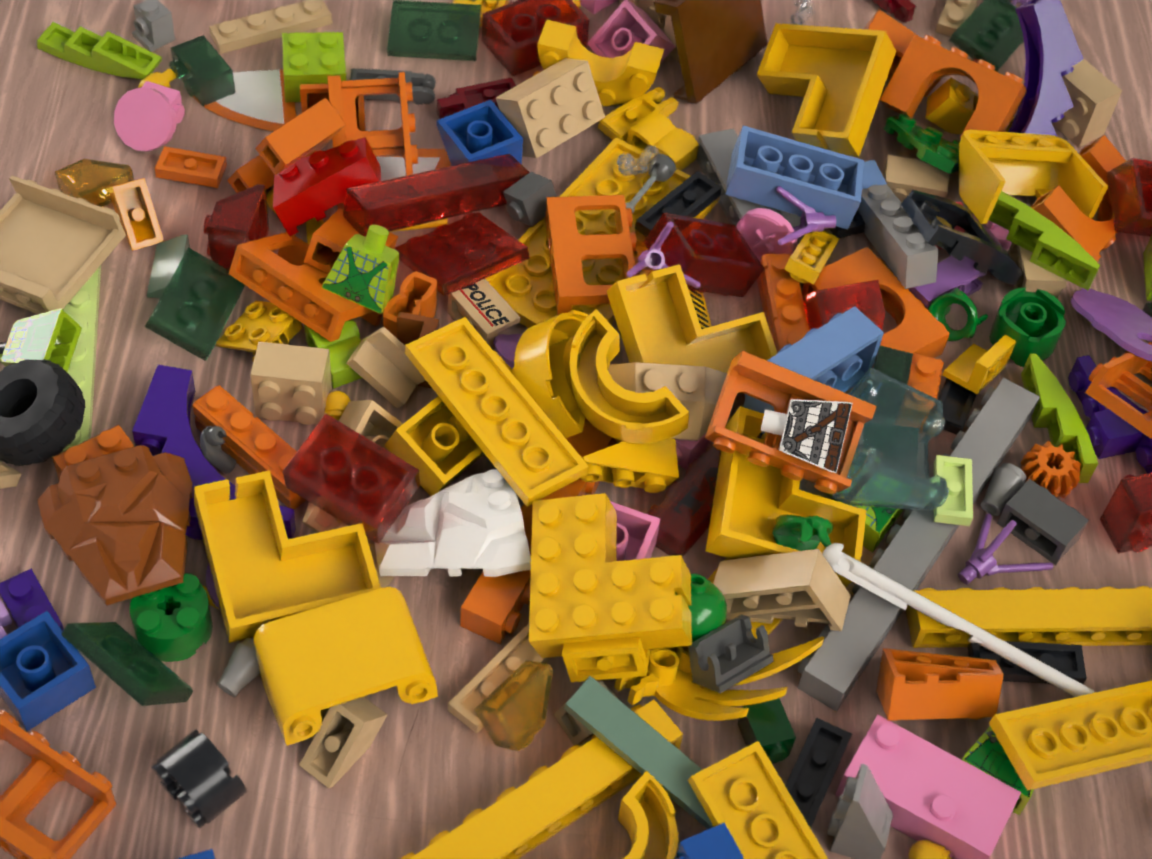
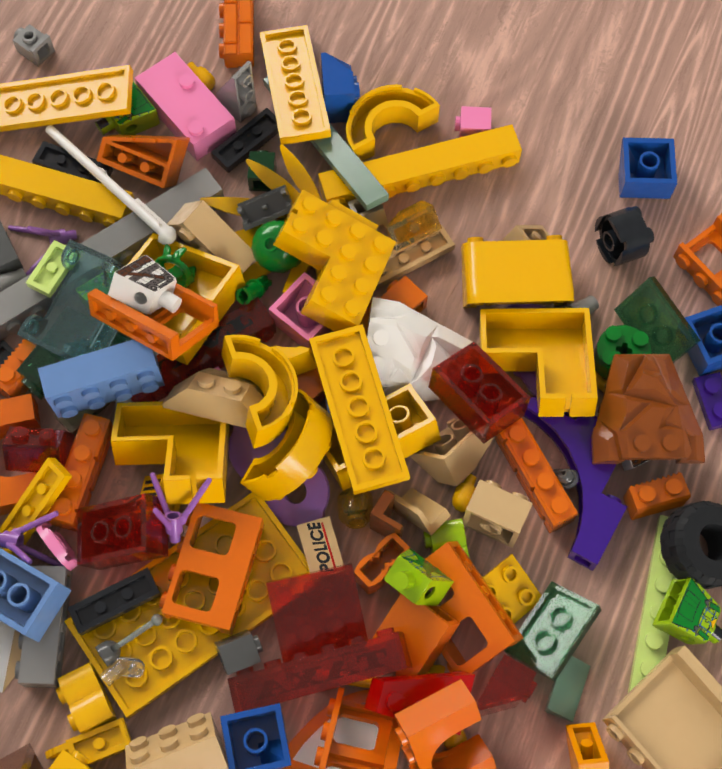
camera: 155 degrees left, 15 degrees up
(695, 545) = (253, 289): none -> green axle

